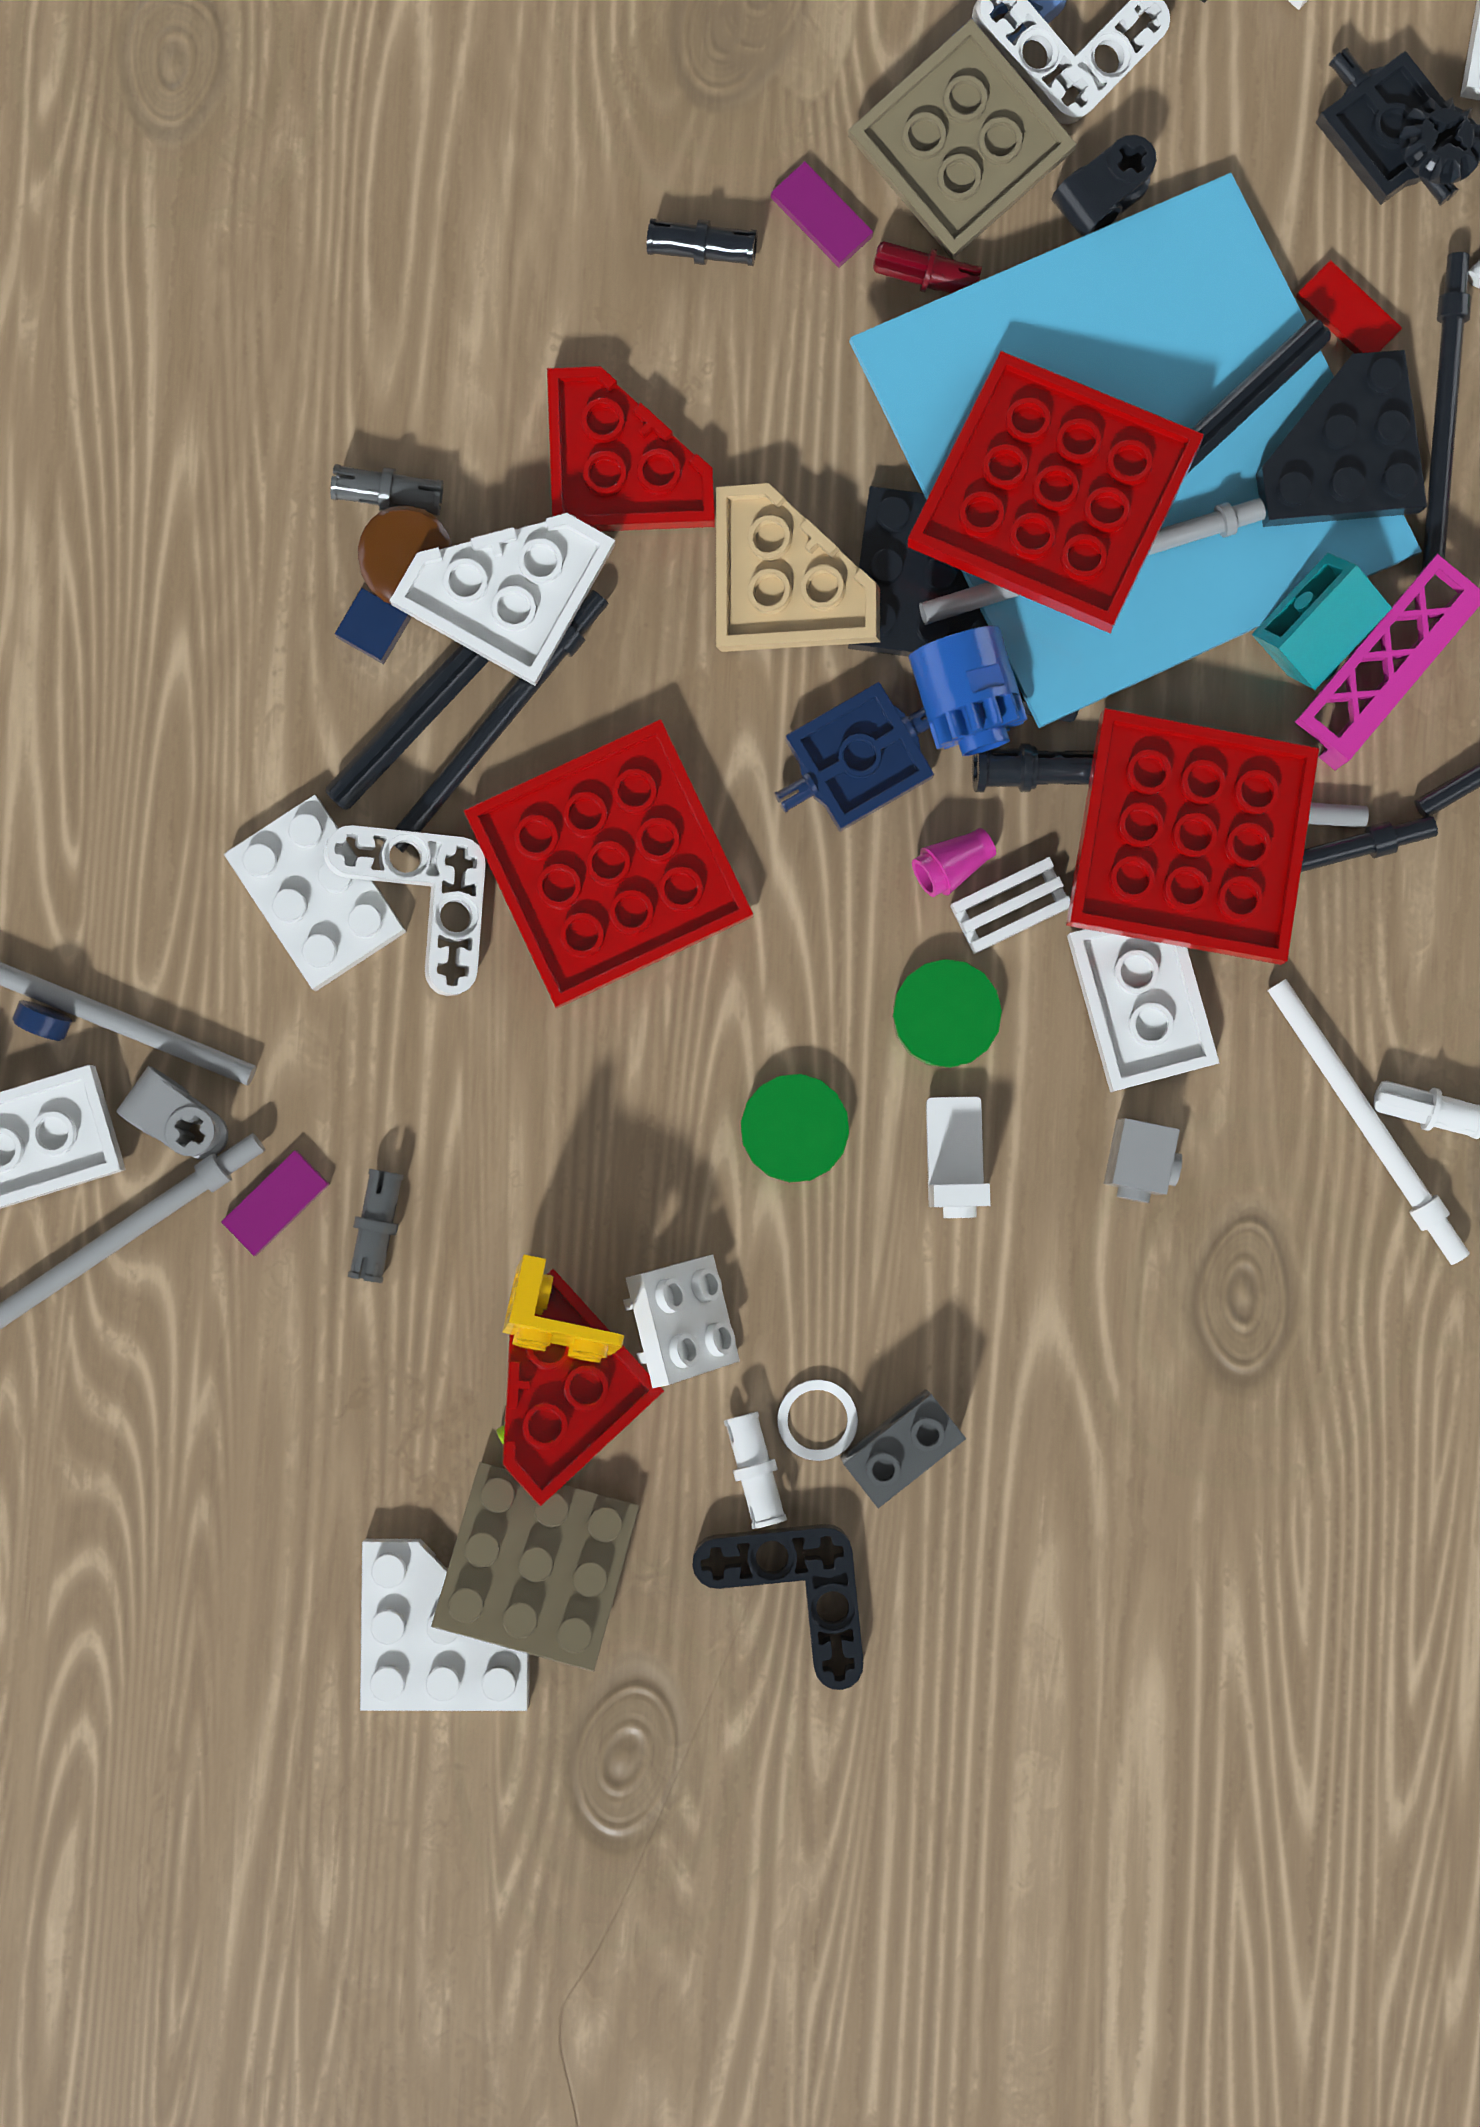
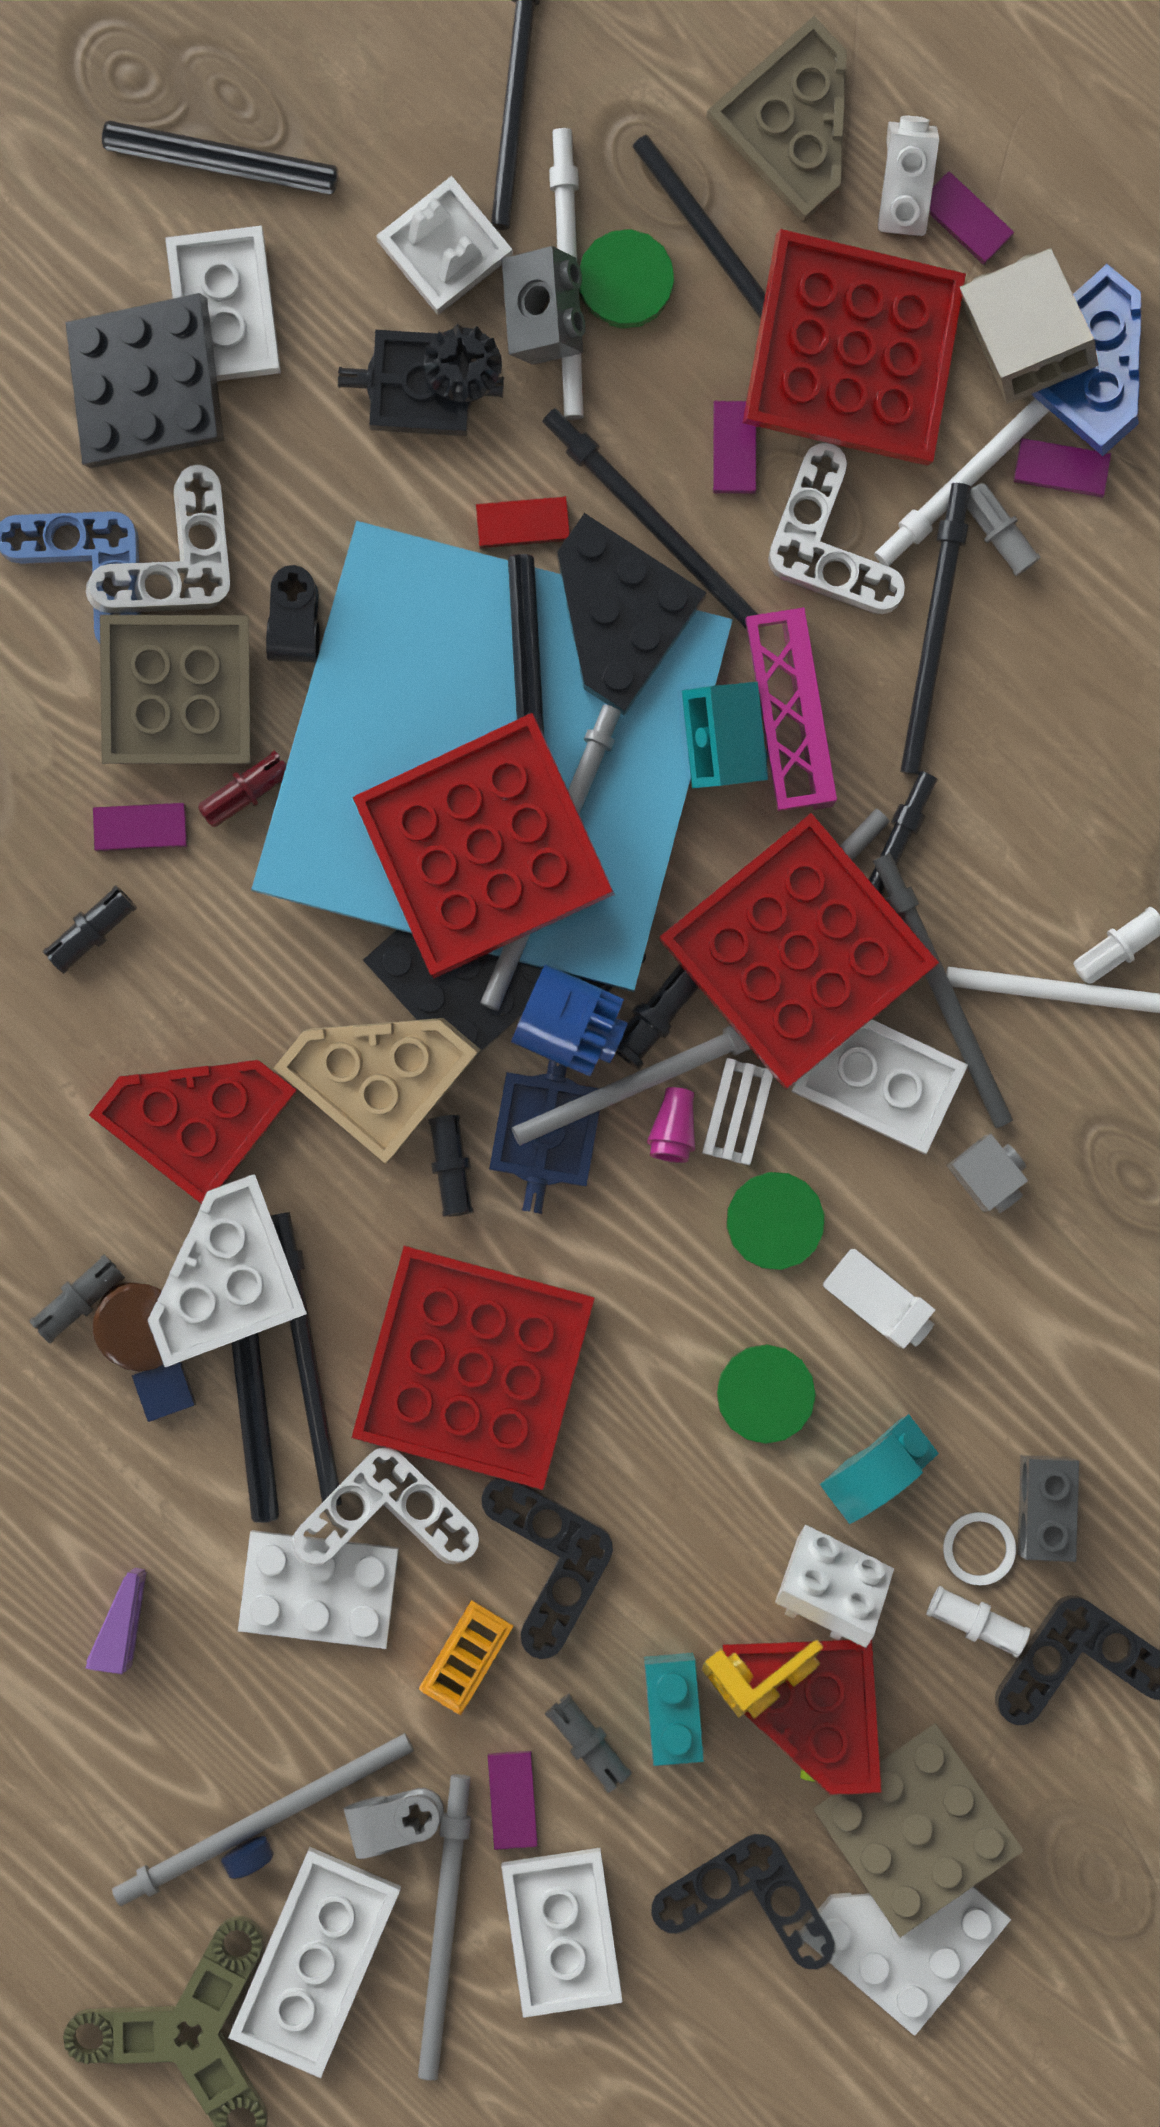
camera: 50 degrees left, 0 degrees up
(137, 757) = (117, 1638): none -> medium lavender slope
(198, 1336) = (561, 1932): none -> white plate
(313, 1066) = (443, 1694): none -> light orange slope
(378, 1474) = (763, 1886): none -> black beam
(463, 1272) = (673, 1709): none -> teal brick
(523, 1065) = (563, 1545): none -> black beam
(761, 703) = (451, 1165): none -> black pin
(812, 1277) = (880, 1470): none -> teal brick
(957, 793) = (633, 1084): none -> light grey bar
(1310, 895) = (903, 902): none -> dark grey bar

